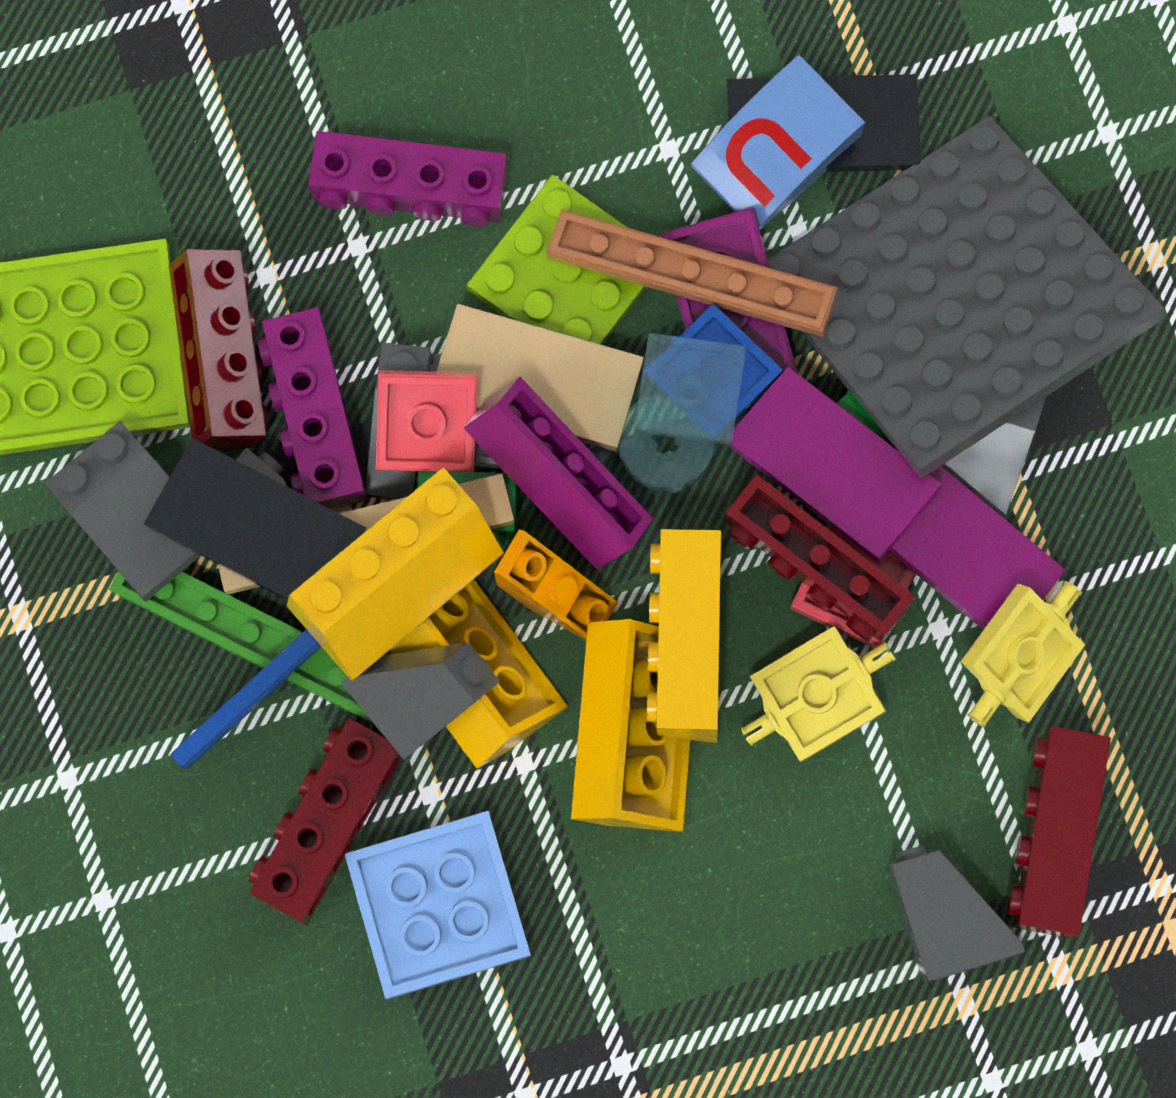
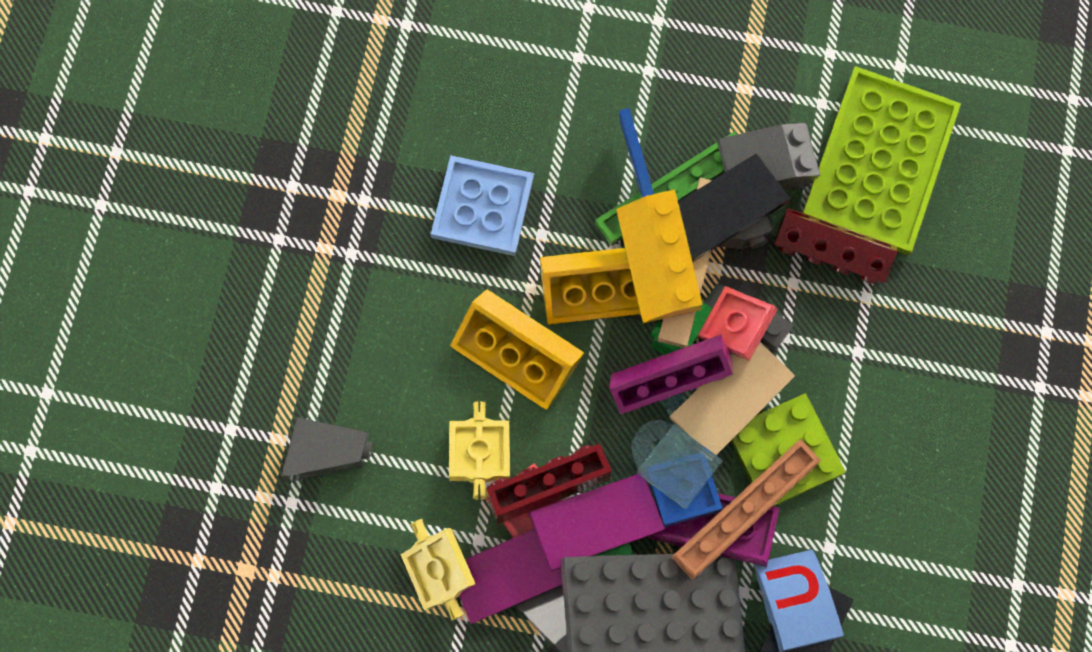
camera: 110 degrees right, 5 degrees down
(313, 409) = (776, 277): magenta brick -> none
(326, 821) = (556, 174): dark red brick -> none
(408, 178) = (883, 393): magenta brick -> none
(420, 692) = (592, 242): dark grey slope -> none
(551, 586) = (614, 343): light orange slope -> none
(687, 634) = (546, 395): yellow slope -> none
(1060, 832) = (332, 533): dark red brick -> none

